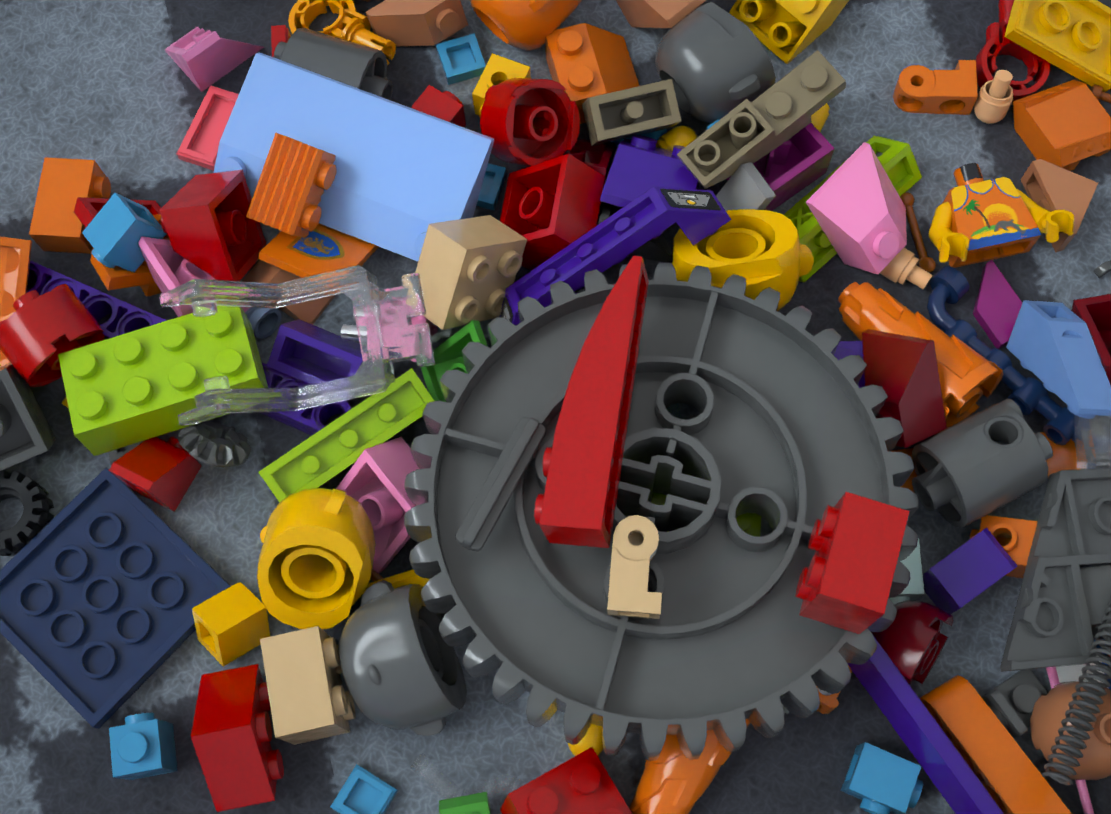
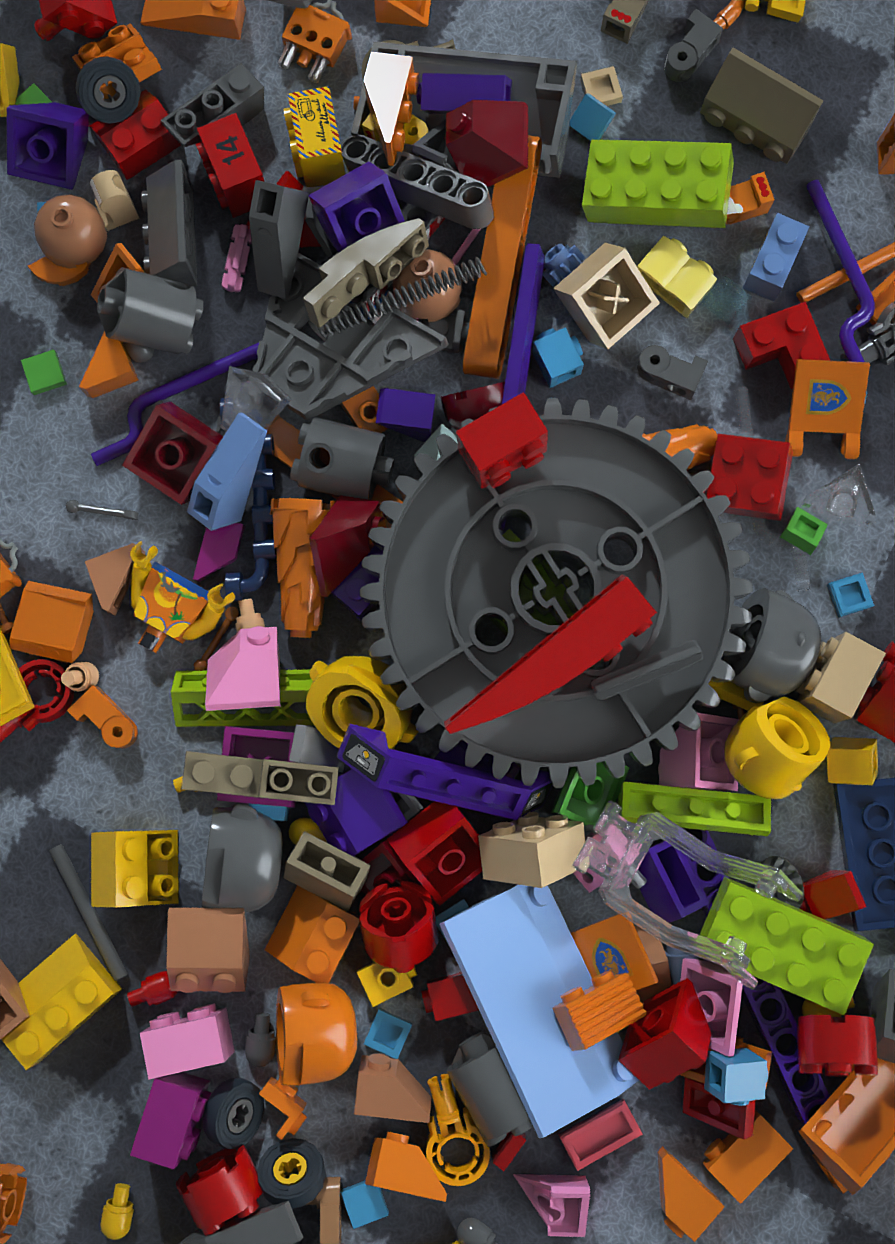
camera: 140 degrees left, 10 degrees up
(98, 133) = (684, 1198): none -> orange slope
(632, 550) = (613, 557): tan leg -> none

